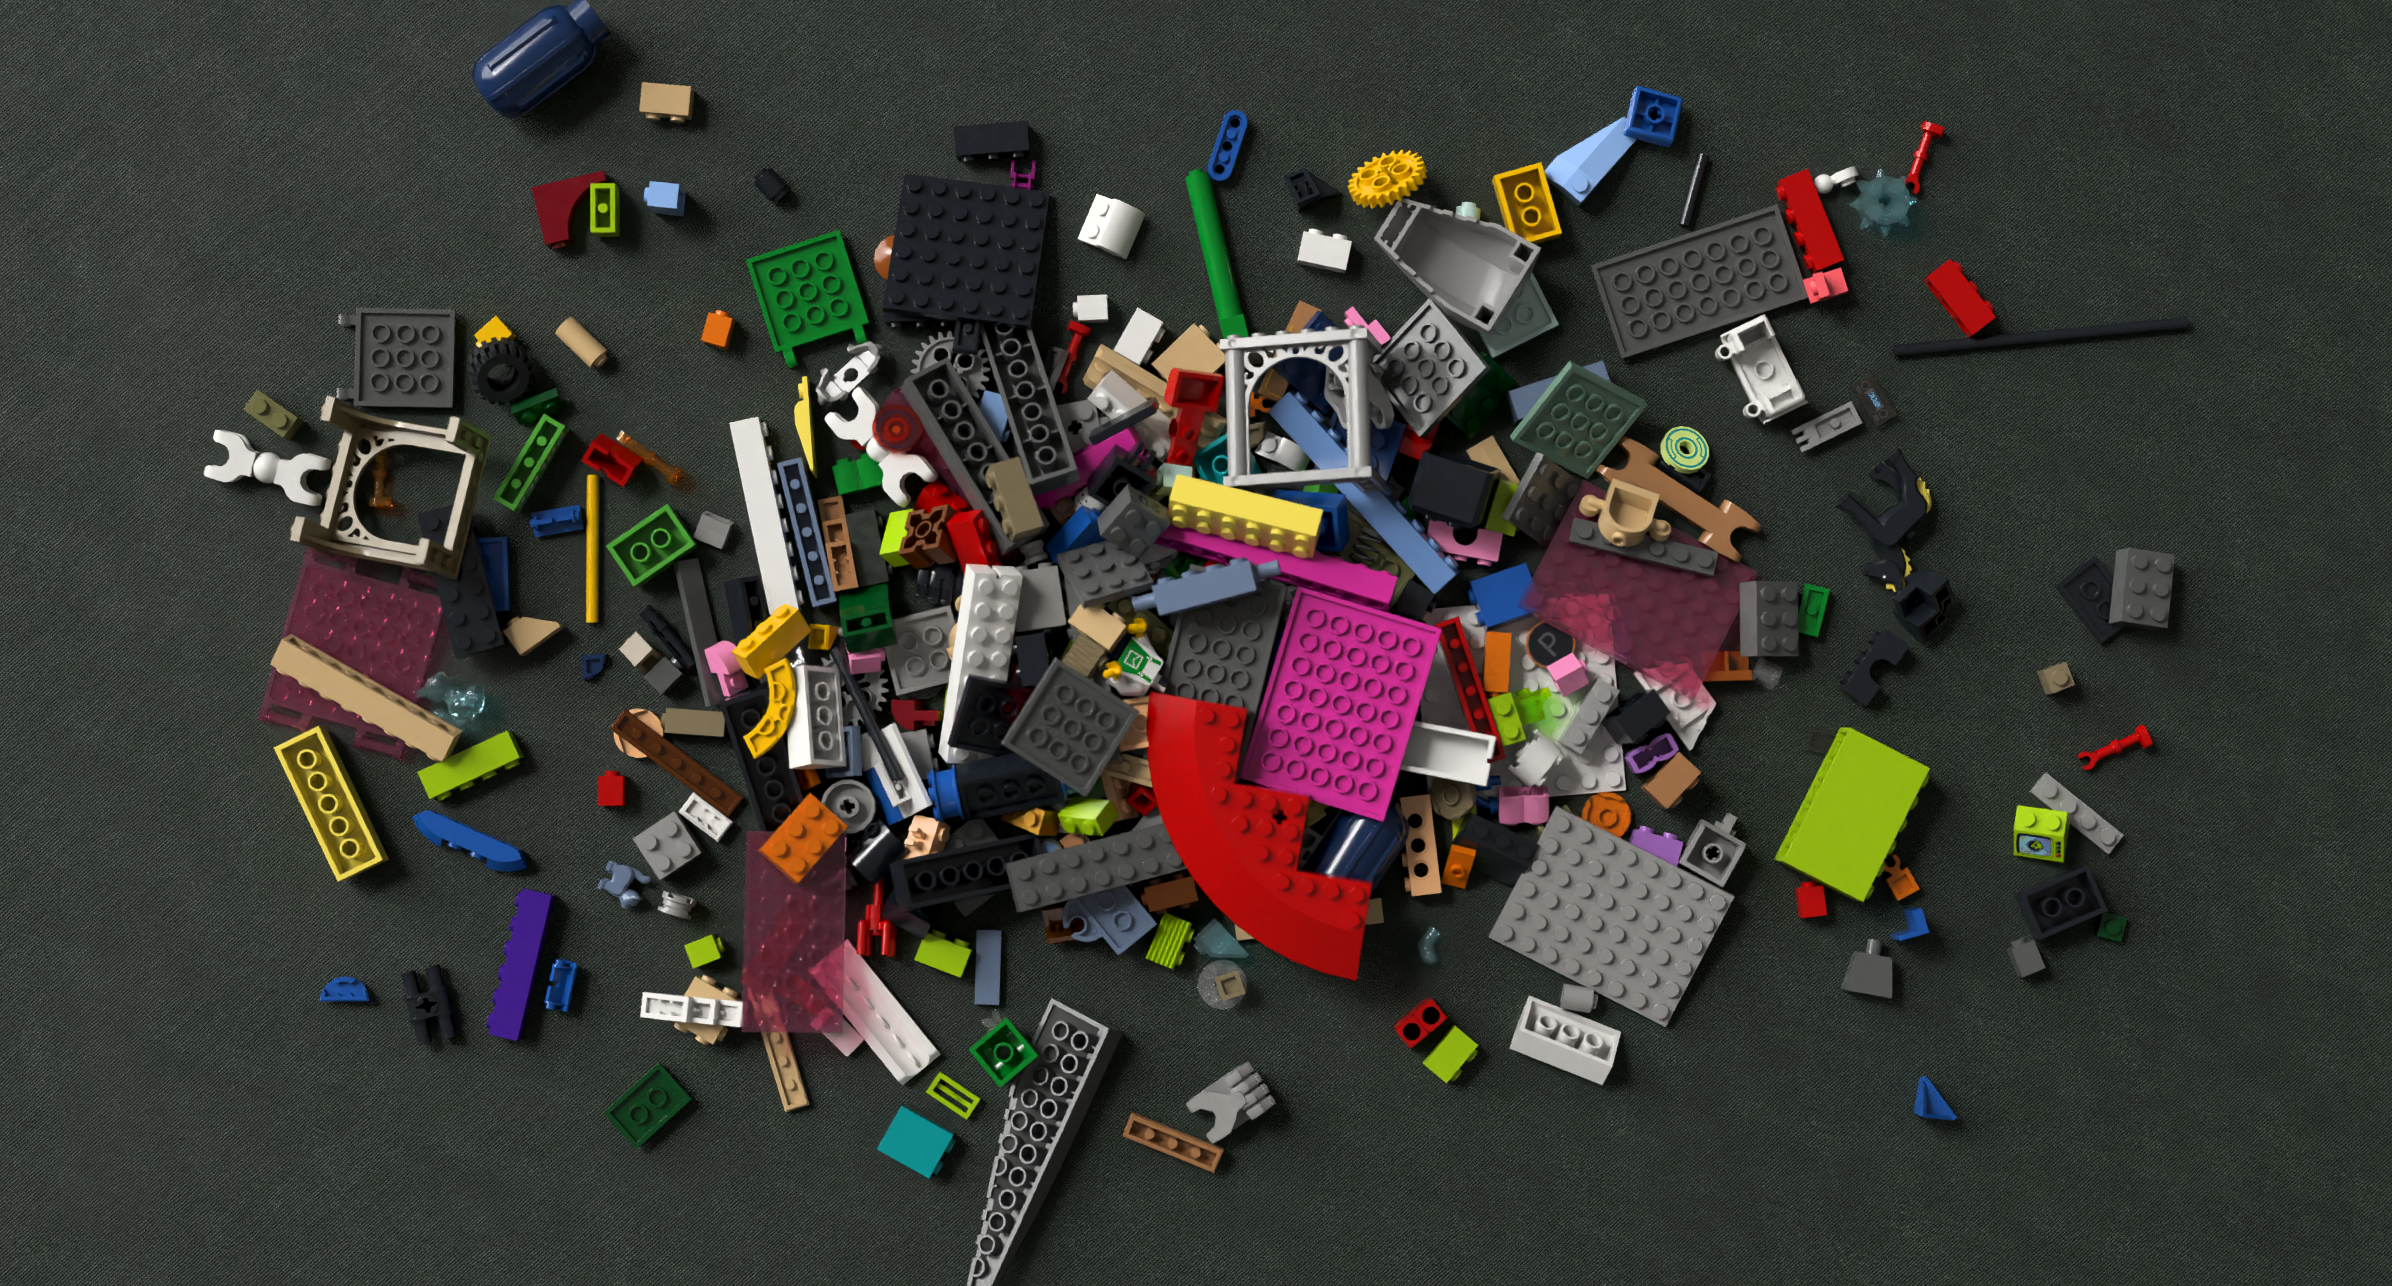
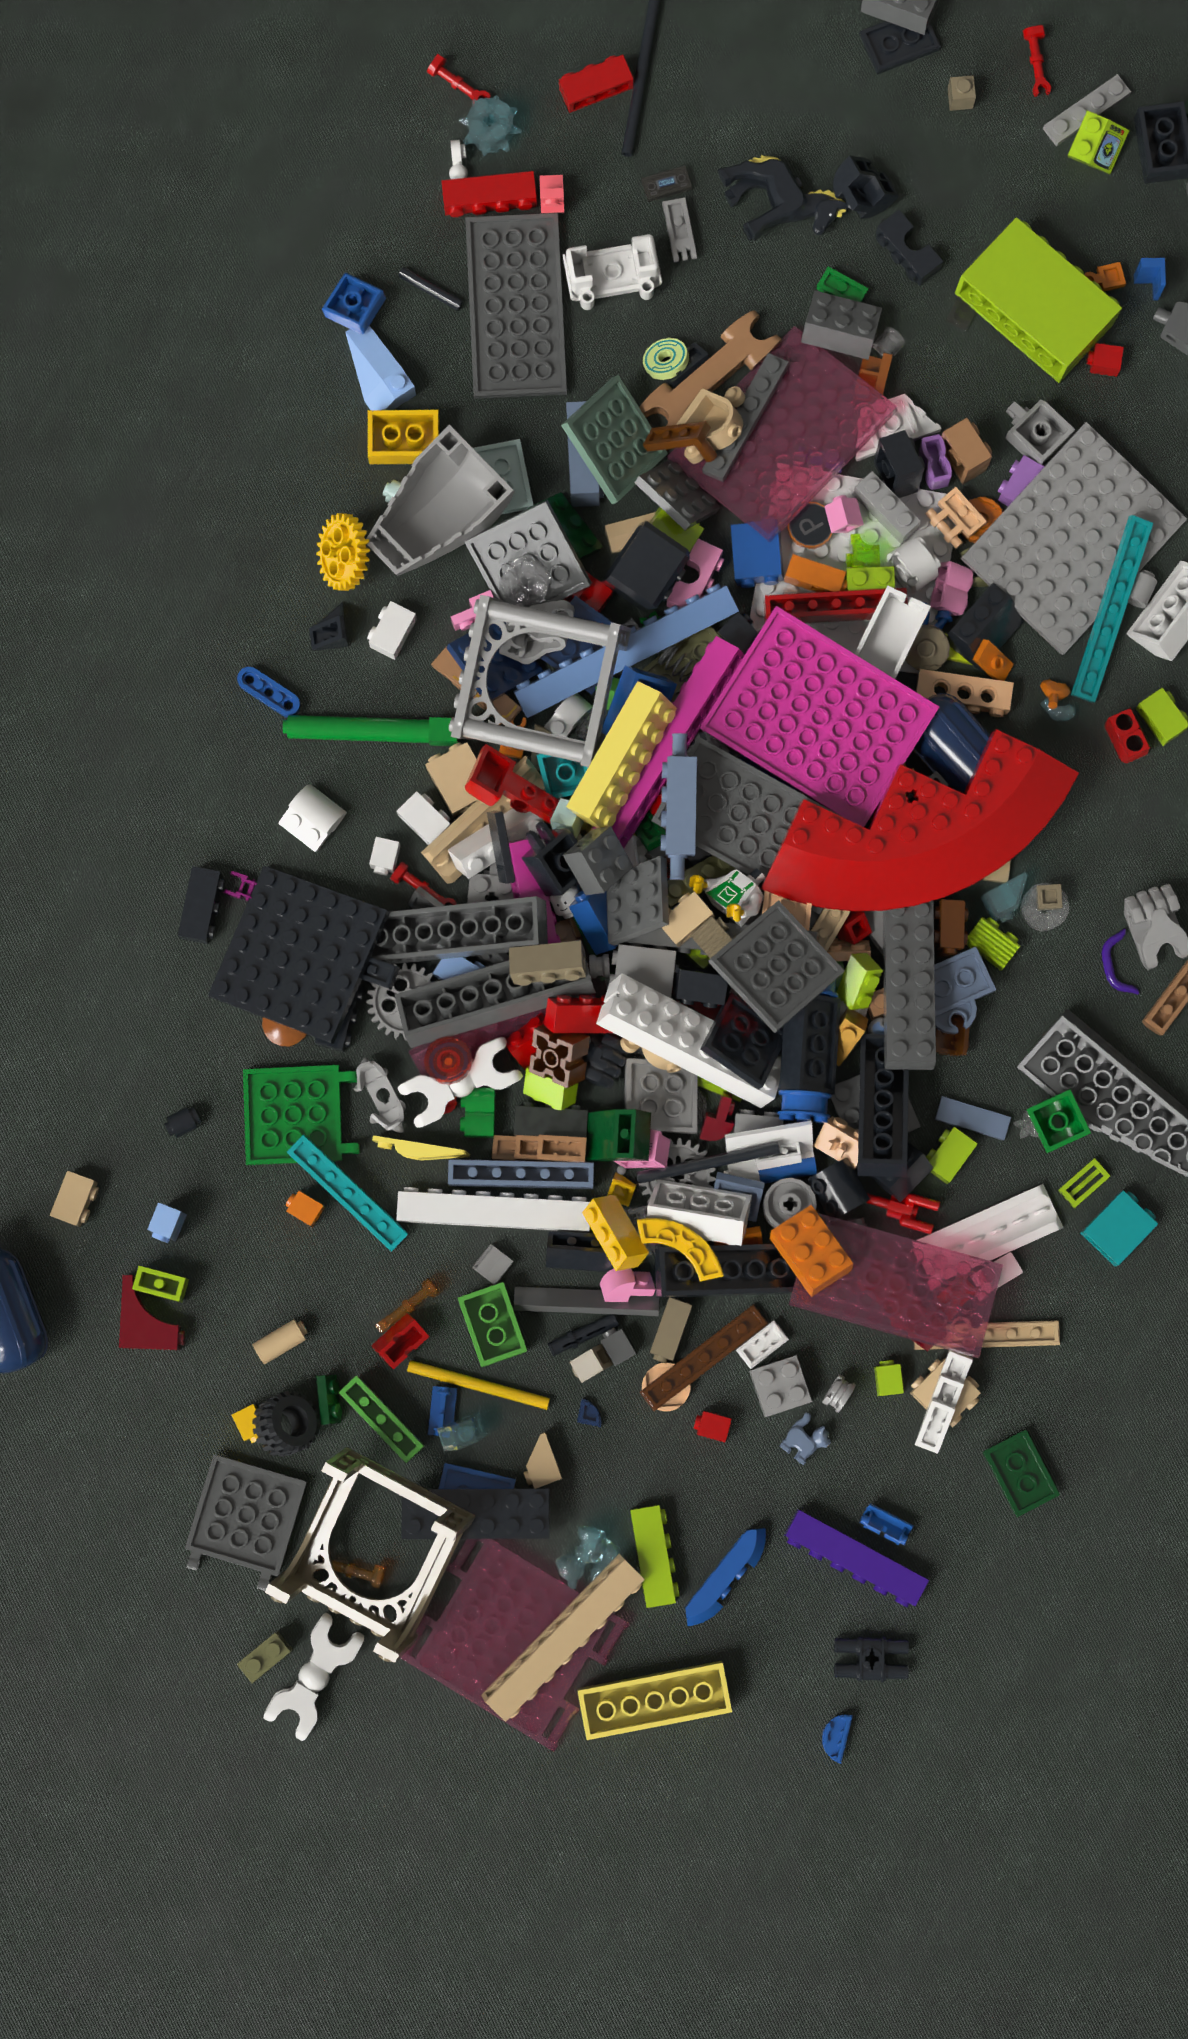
camera: 80 degrees left, 5 degrees down
(538, 546) = (462, 1432): none -> clear light blue slope
(744, 367) = (347, 1192): none -> teal plate
(1179, 1064) = (1108, 965): none -> dark purple animal
(1394, 368) = (529, 569): none -> clear plate
(1445, 937) = (1054, 691): none -> orange rock
(1546, 973) = (1112, 608): none -> teal plate
(1599, 487) = (681, 436): none -> reddish brown piece
(1604, 794) = (960, 512): none -> light nougat plate

